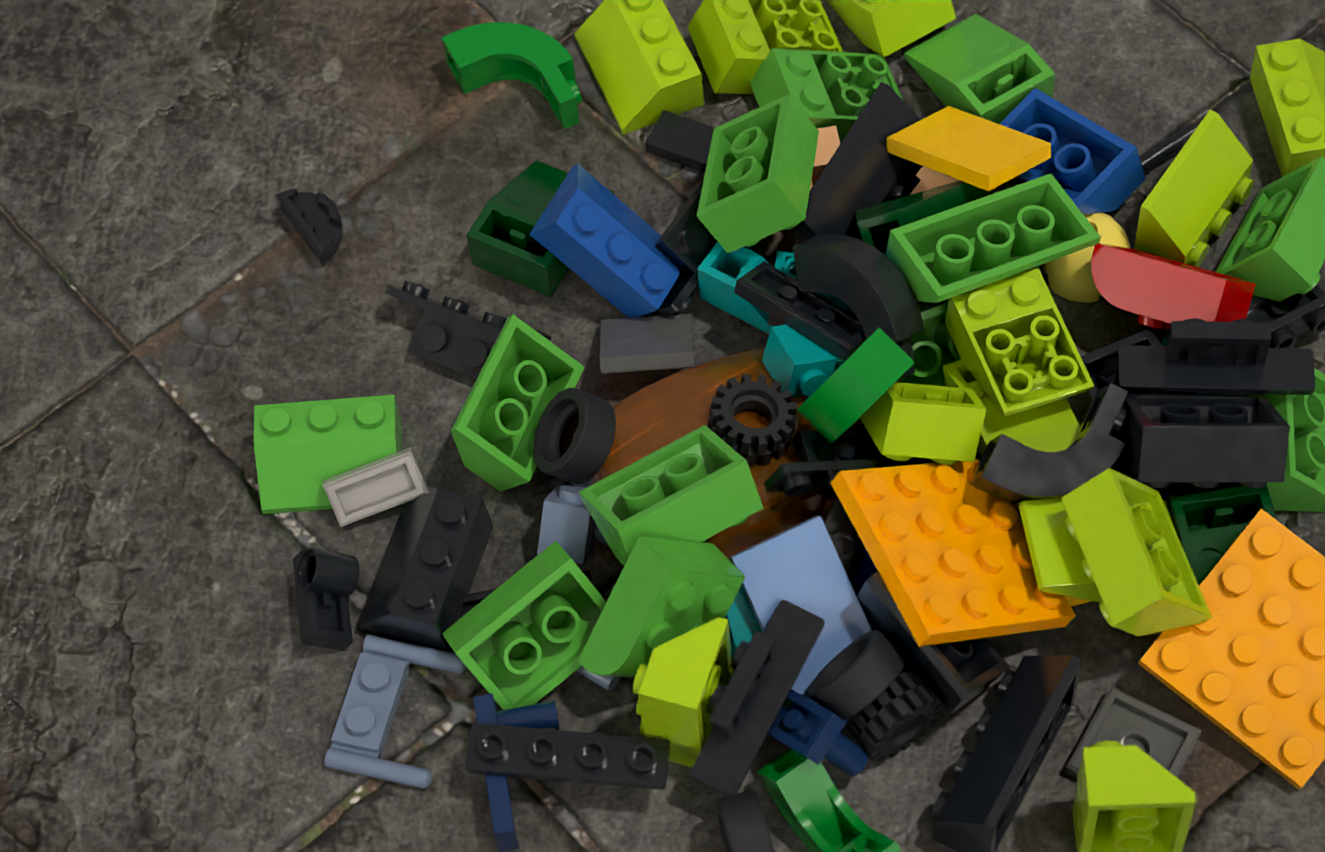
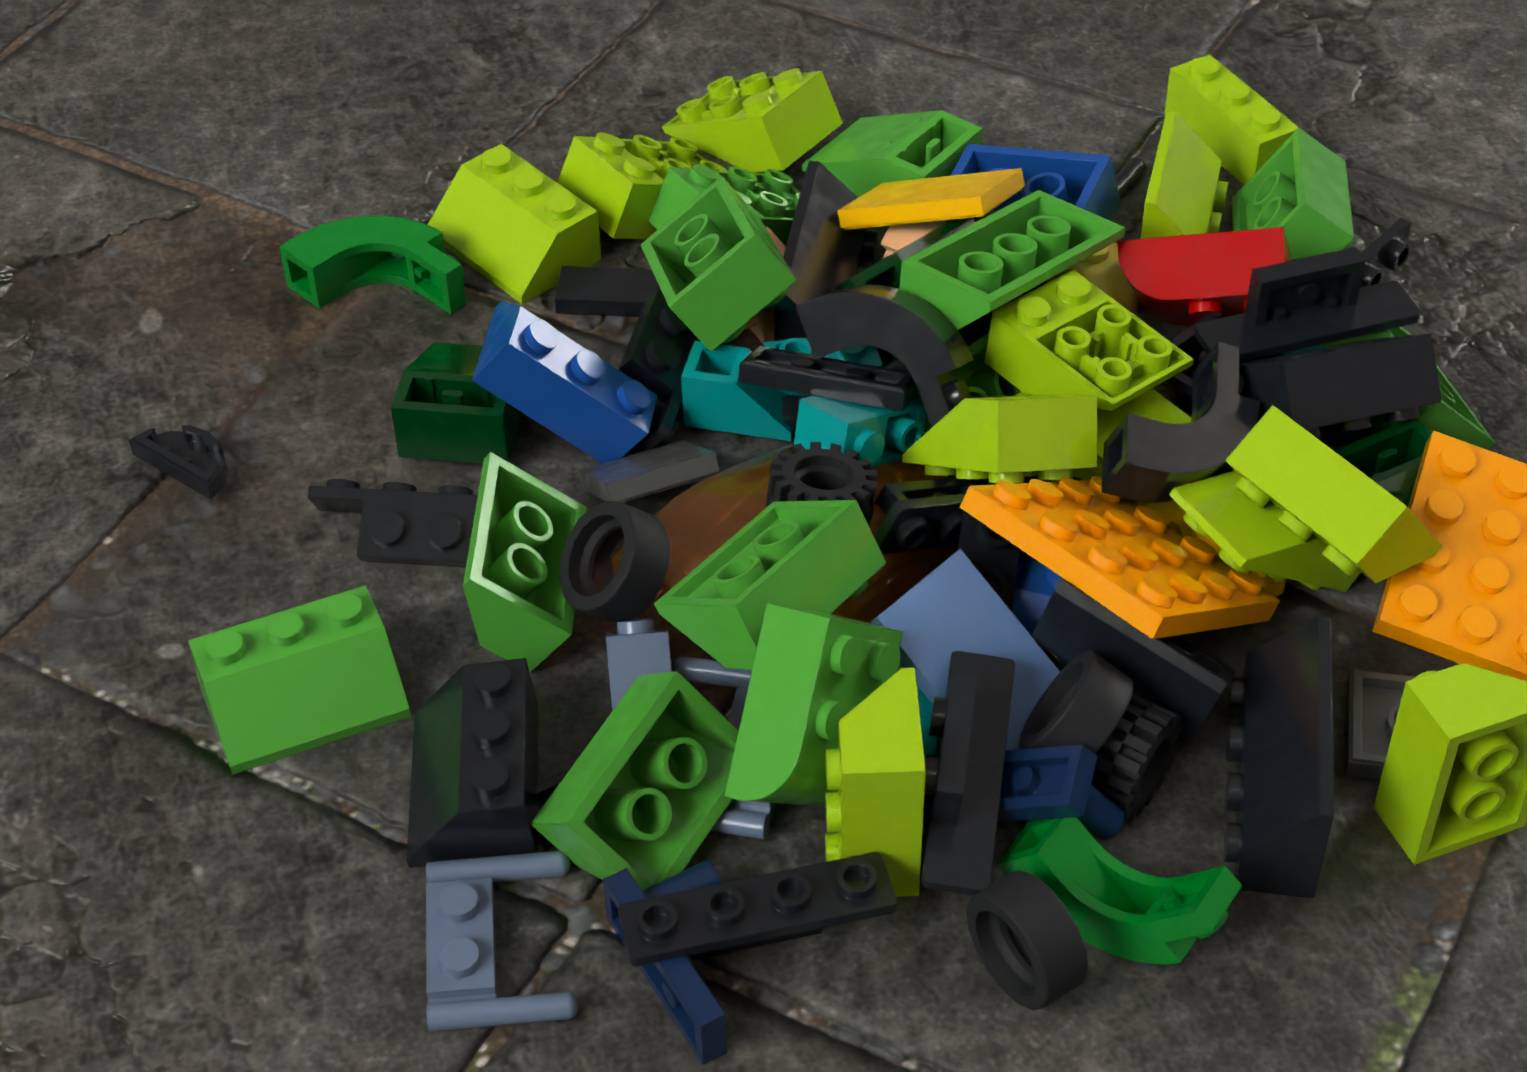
camera: 25 degrees left, 15 degrees down
(322, 593) = (349, 822): black plate -> none
(375, 486) = (374, 696): light grey tile -> none
(855, 385) = (943, 402): green arch -> none

